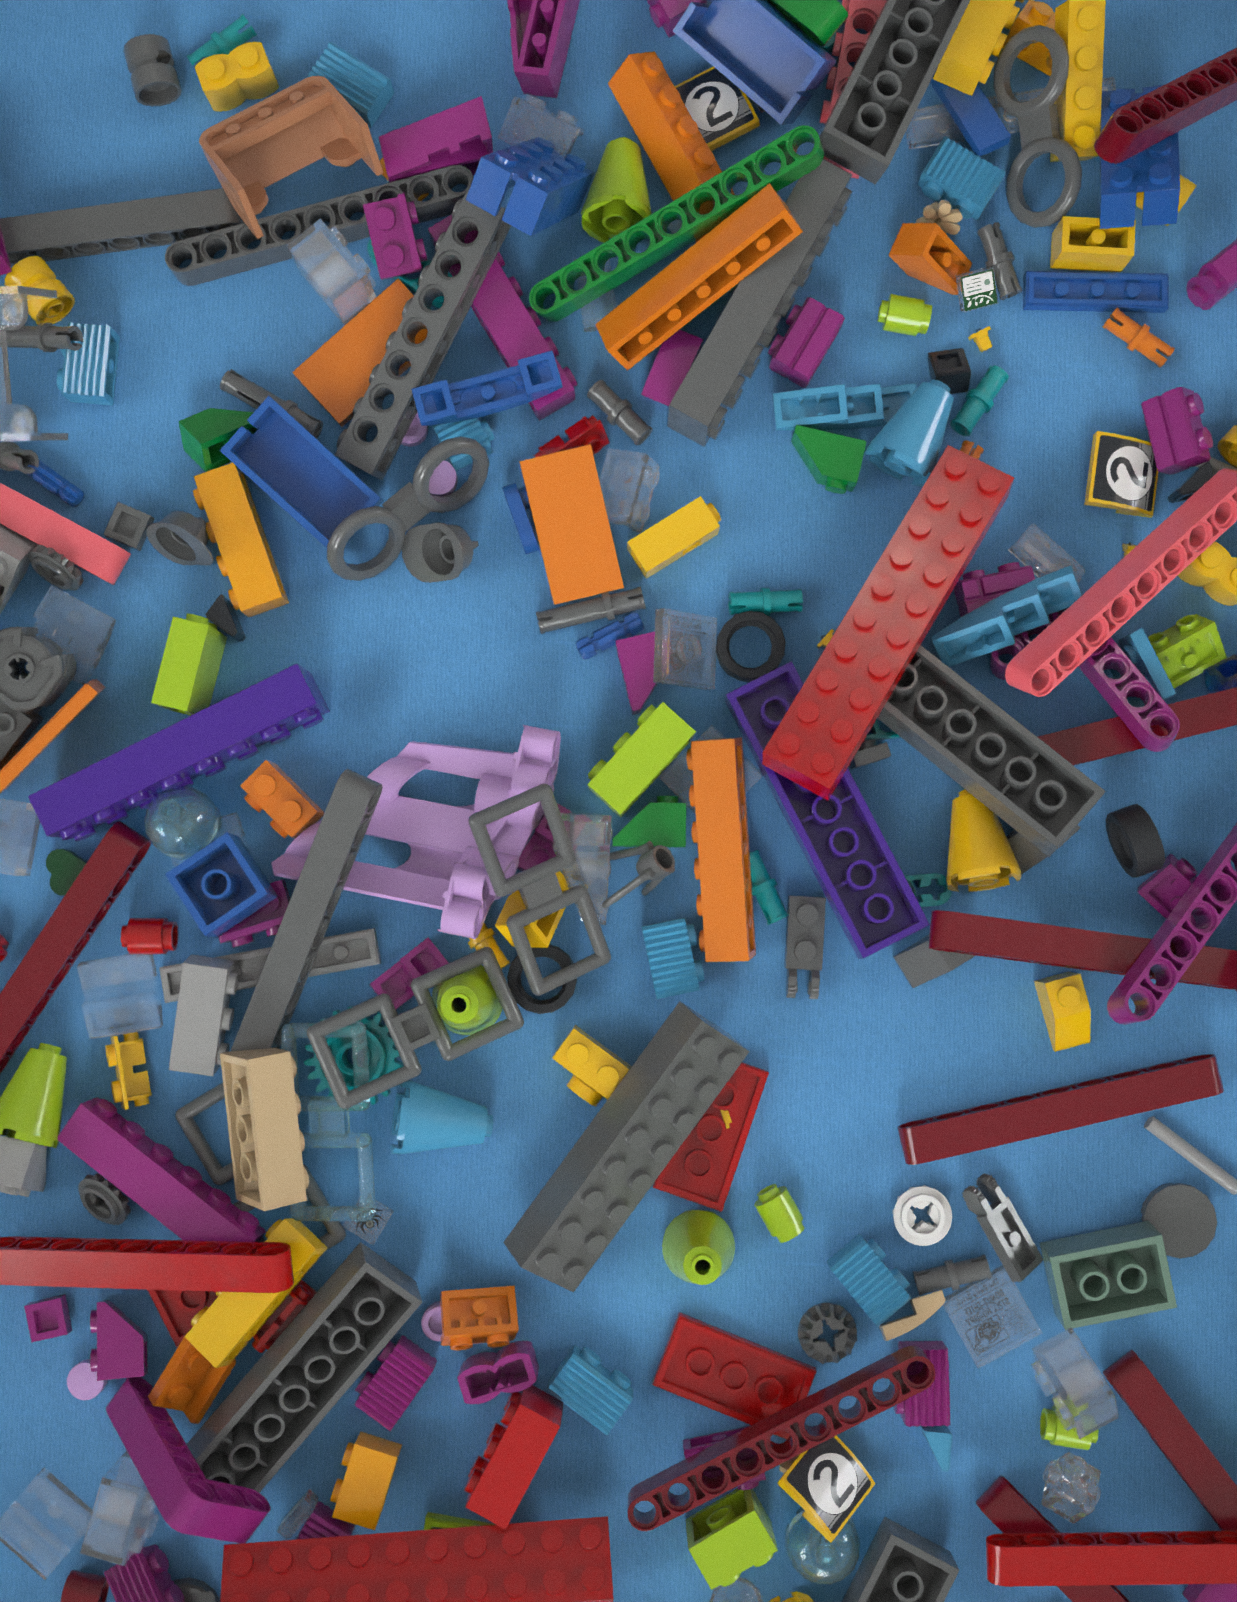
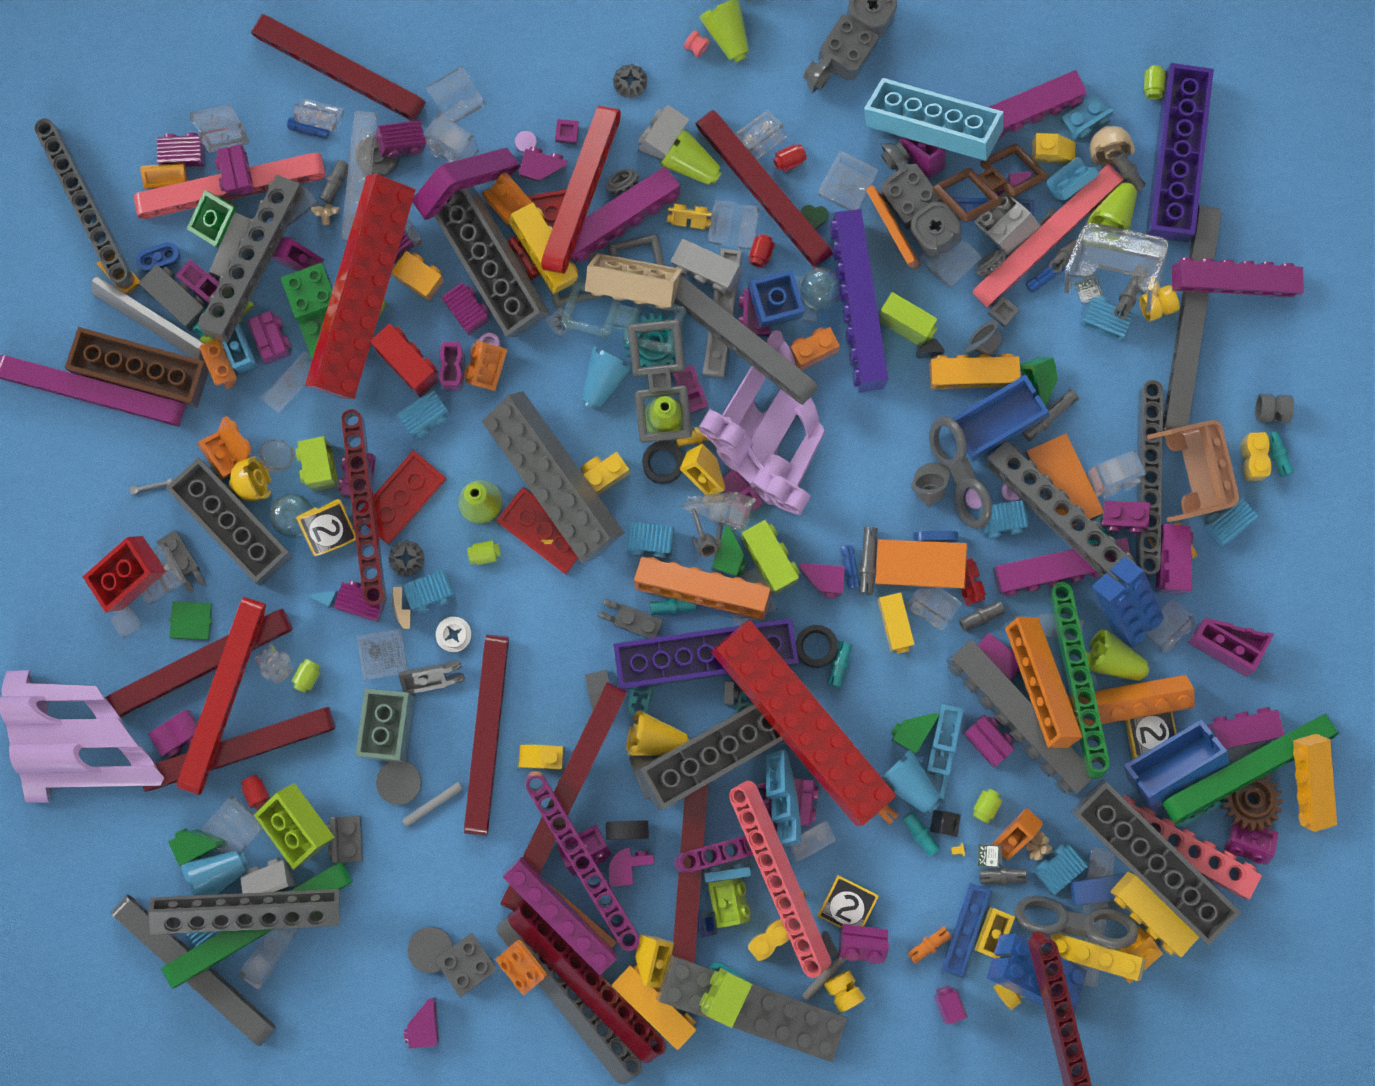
camera: 105 degrees right, 5 degrees down
(51, 408) = (1088, 288): none -> clear tile
(489, 392) = (1014, 538): blue slope -> none
(540, 888) = (714, 474): dark grey bar -> none
(685, 649) = (826, 605): clear tile -> none
(952, 1275) = (414, 639): dark grey pin -> none
(1077, 1386) = (333, 682): clear brick -> none
(1184, 830) = (621, 866): none -> magenta brick

